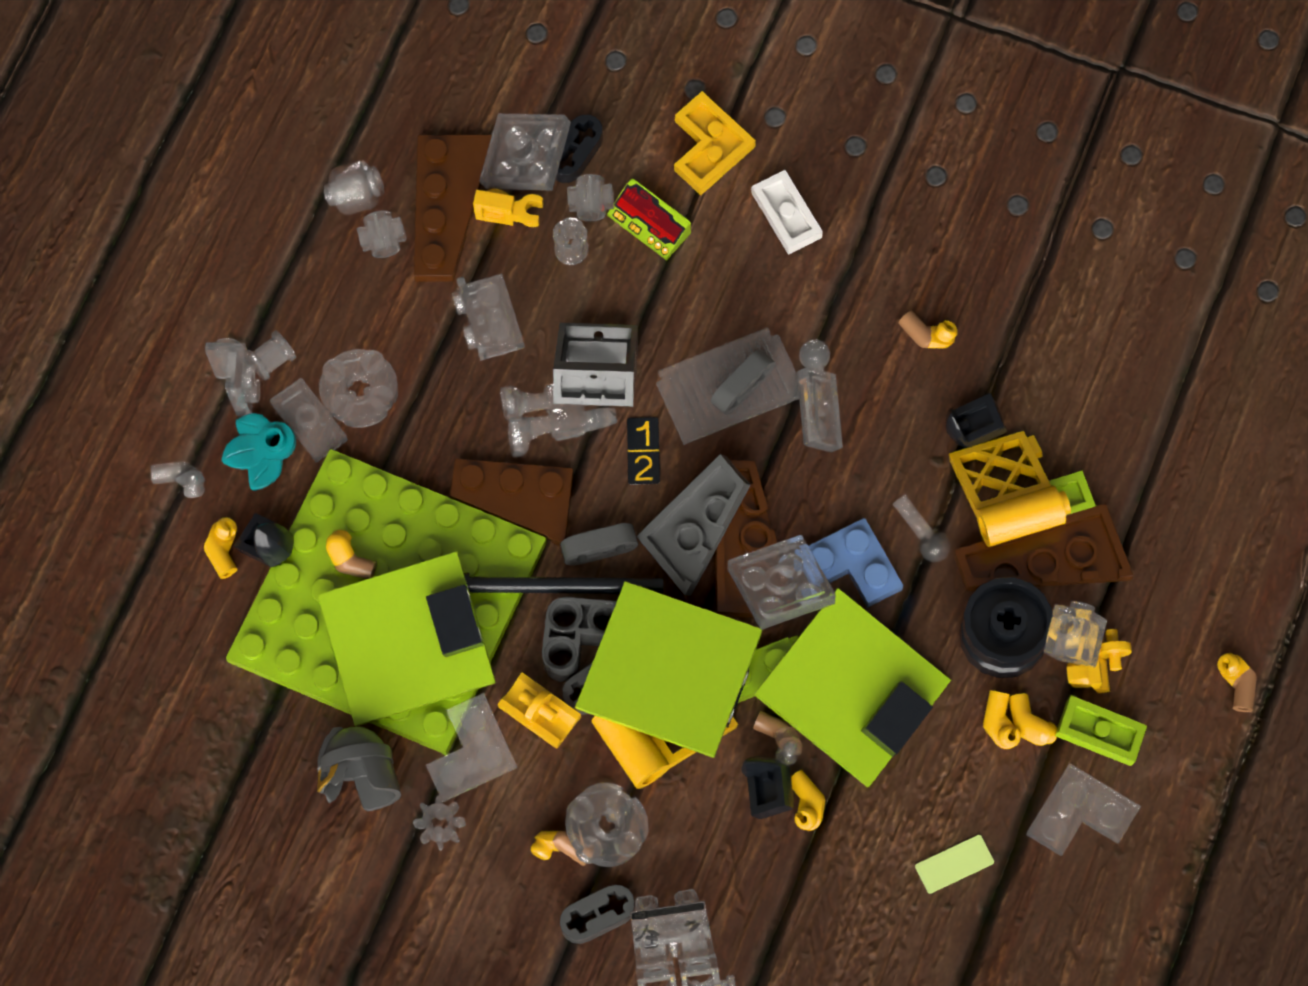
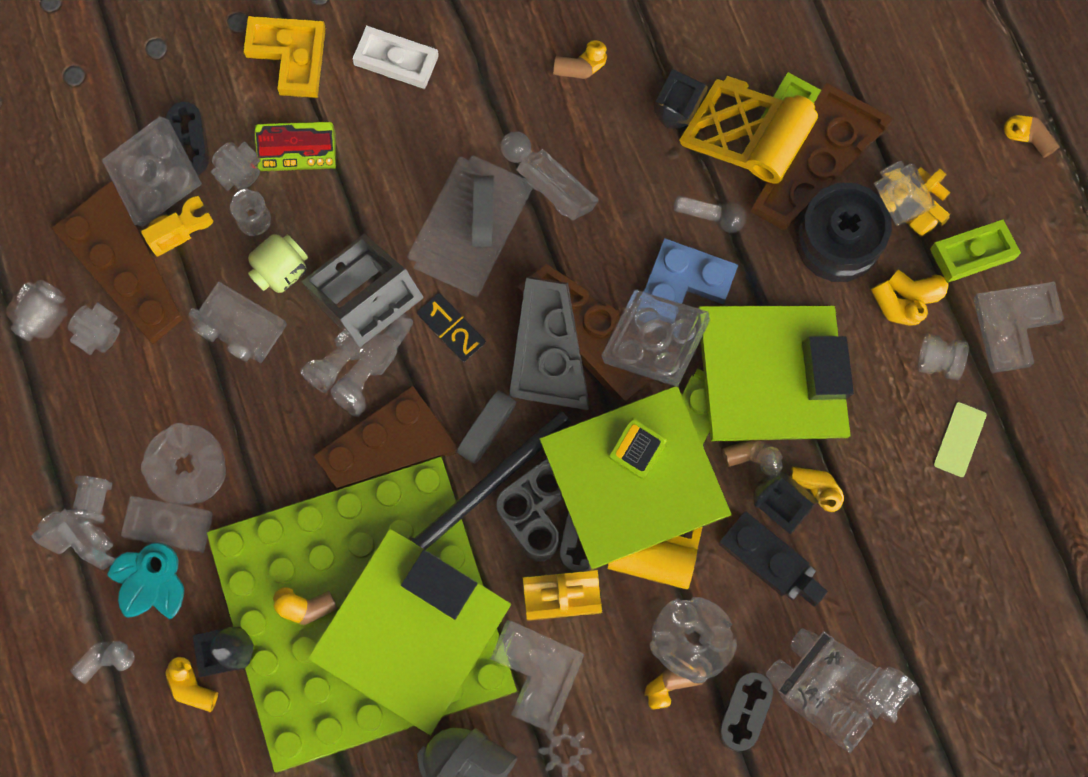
camera: 45 degrees left, 5 degrees up
(554, 295) = (277, 263): none -> yellowish green head
(687, 648) = (638, 448): none -> slope
(721, 823) = (772, 560): none -> black hinge
(994, 784) = (938, 356): none -> clear wheel

